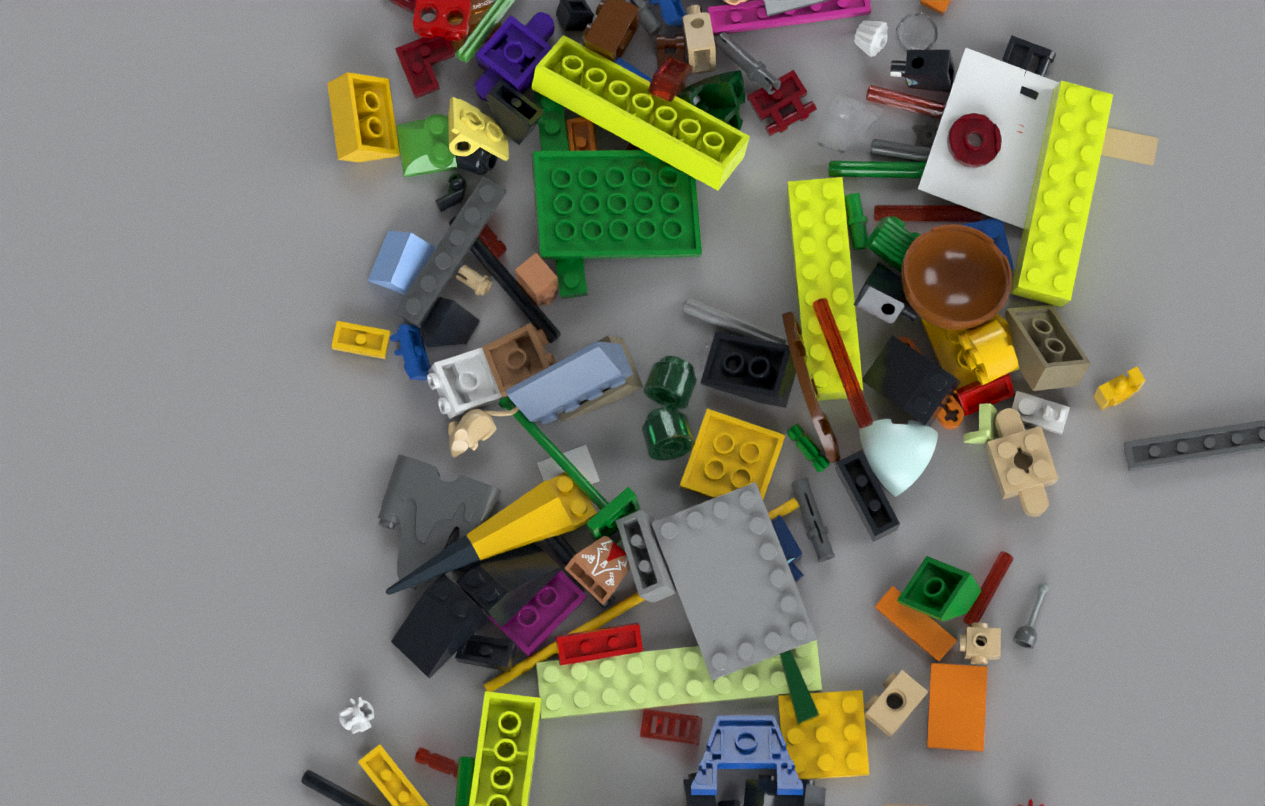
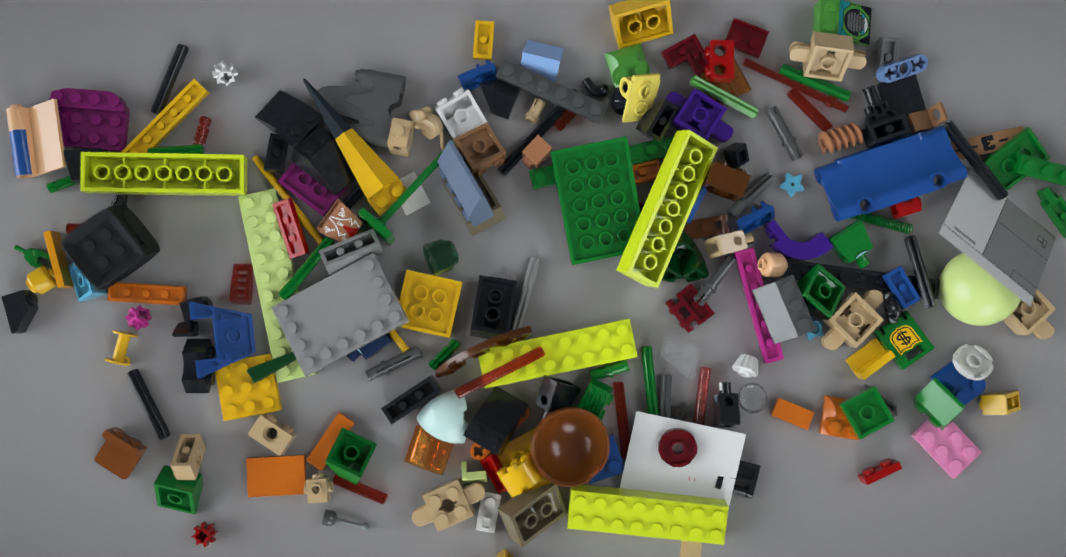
camera: 80 degrees right, 10 degrees up
(487, 468) = (401, 136): none -> tan torso
(661, 625) = (304, 270): none -> green axle
(669, 79) = (692, 225): clear red slope -> none
(671, 382) = (477, 255): clear green piece -> none
(943, 484) = (428, 452): none -> clear orange slope

